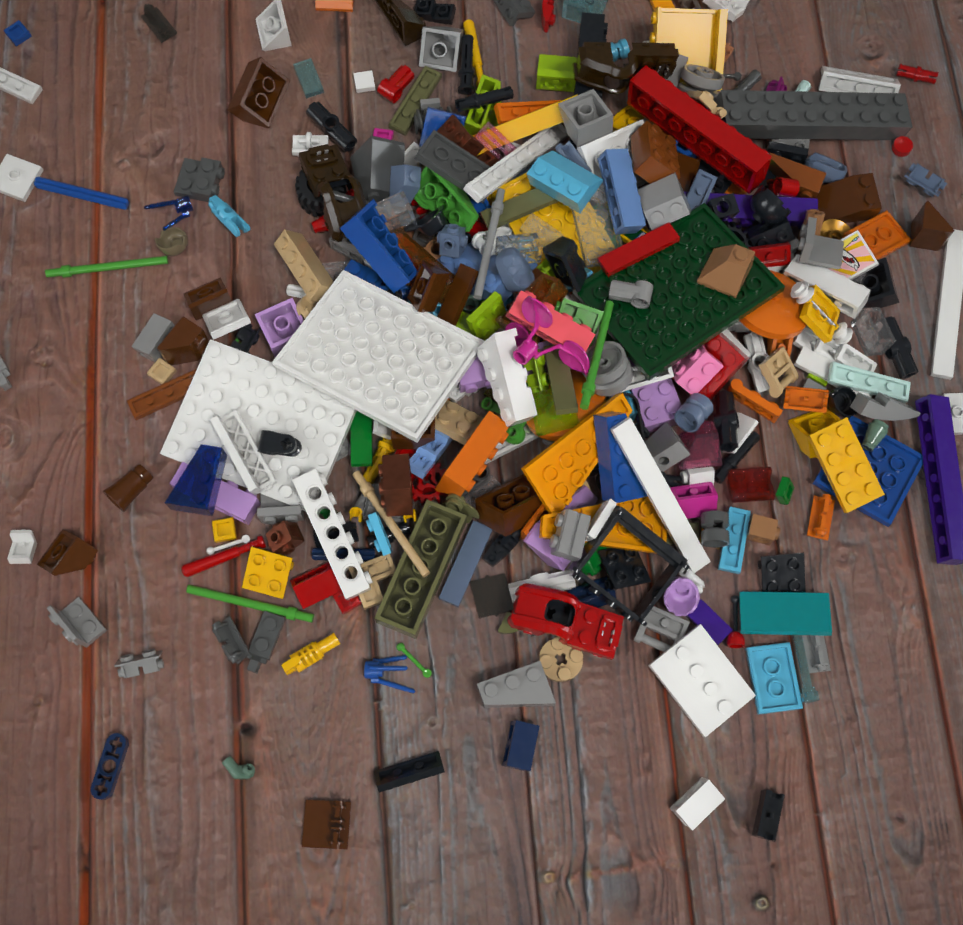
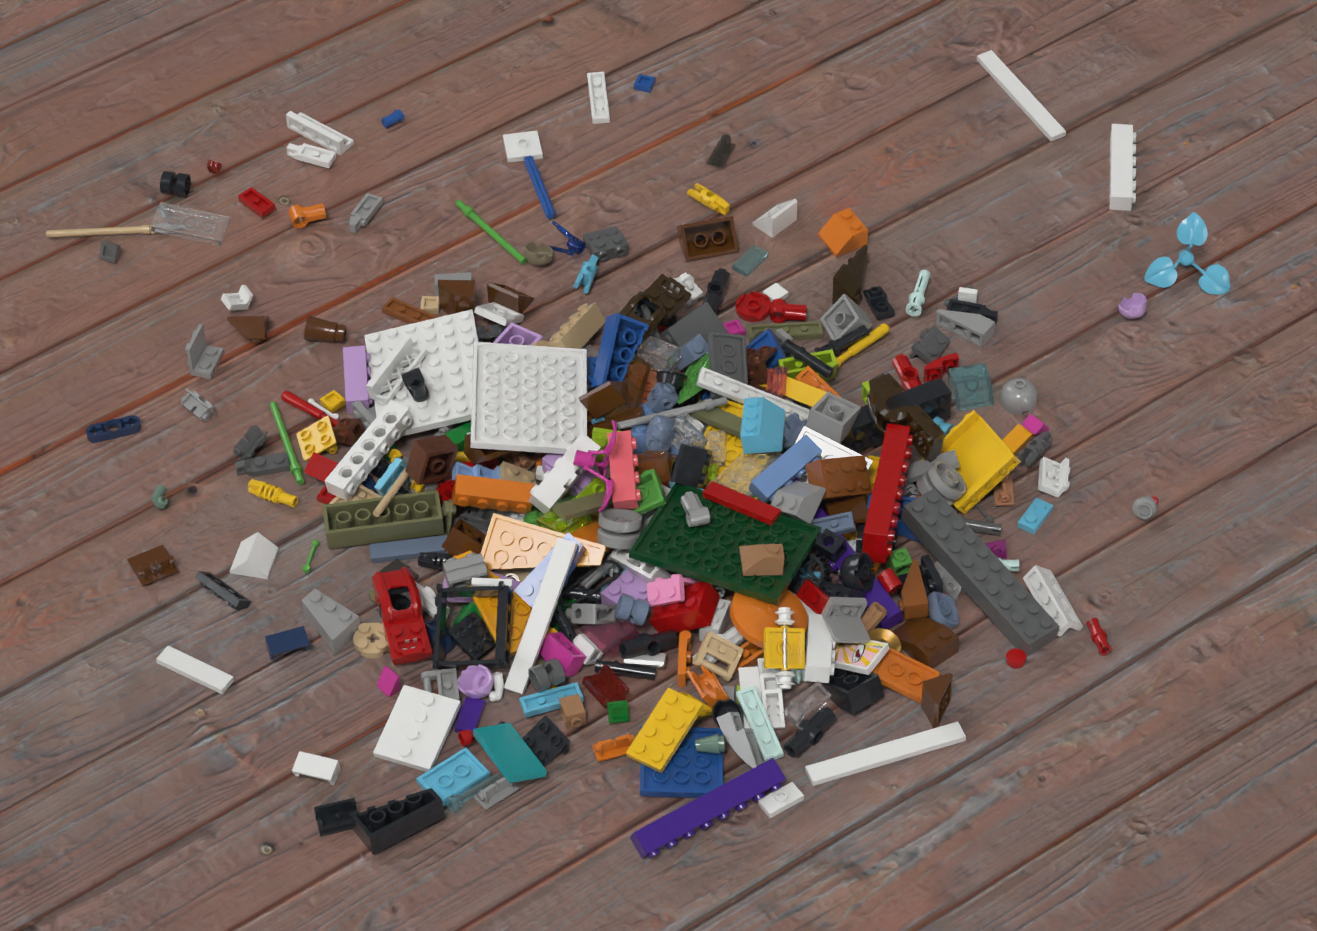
camera: 60 degrees right, 25 degrees down
(200, 482) = (353, 357): clear blue wedge -> none
(209, 65) = (709, 199): none -> yellow hinge
(366, 107) = (753, 307): none -> red tile
(375, 669) = (287, 536): blue plant -> none
(382, 717) = (255, 557): none -> white slope
(493, 854) = (195, 669): none -> white tile
(544, 39) = (906, 372): none -> red piece
(589, 386) = (586, 512): bright green bar -> none
(626, 675) = (388, 682): none -> dark pink slope
(706, 99) = (912, 481): tan plate -> none
(755, 41) = (1035, 516): none -> medium azure plate
(809, 762) = (397, 820): none -> black wedge
(930, 185) = (988, 683): sand blue hinge -> none

